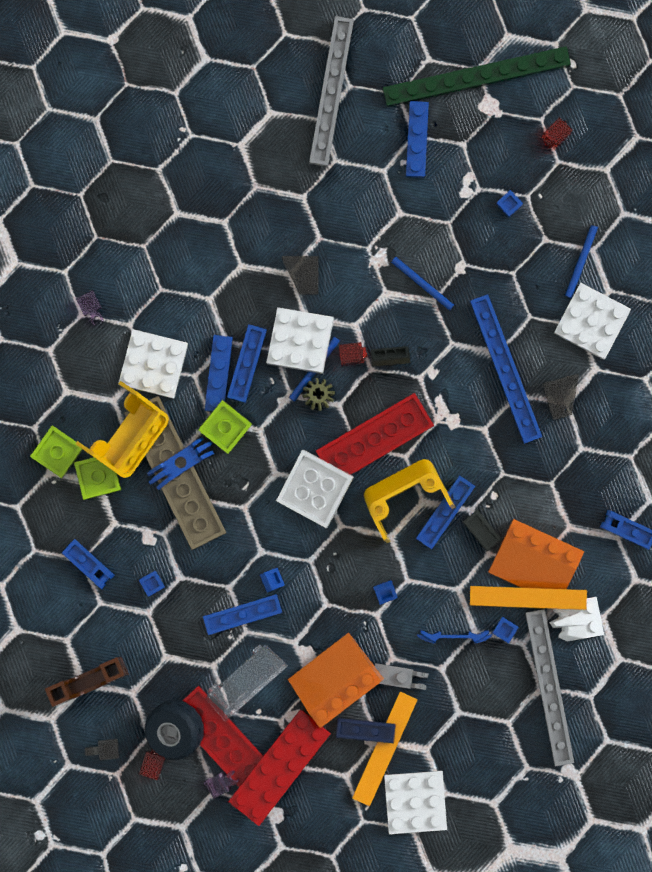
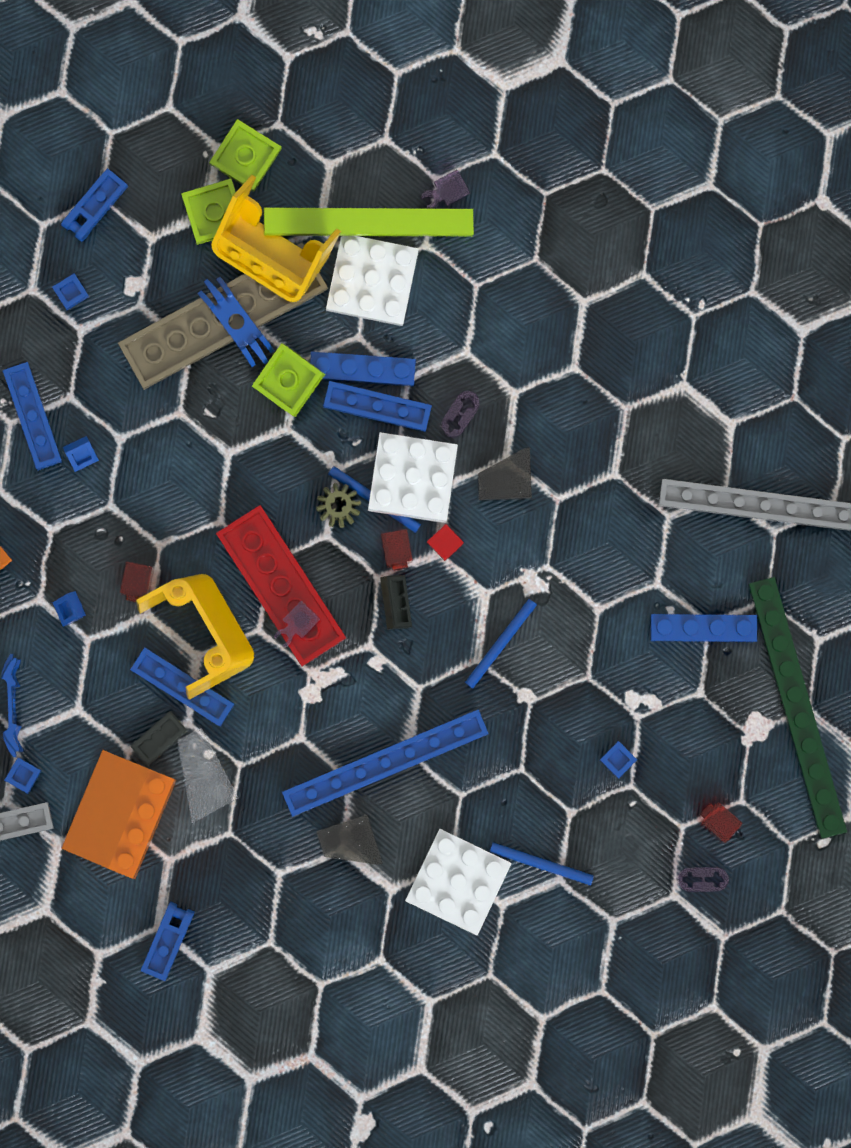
camera: 75 degrees right, 0 degrees up
(111, 364) = (368, 222): none -> lime tile
(257, 301) = (455, 410): none -> clear purple beam
(314, 488) = (207, 505): white plate -> none
(348, 319) = (445, 542): none -> red tile
(368, 542) = (136, 581): none -> clear red brick
(402, 425) = (299, 622): none -> clear purple plate
(510, 499) = (204, 776): none -> clear wing
(528, 598) = (67, 805): light orange tile -> none
(579, 623) = (41, 876): white plate -> none
(591, 148) = (703, 886): none -> clear purple beam

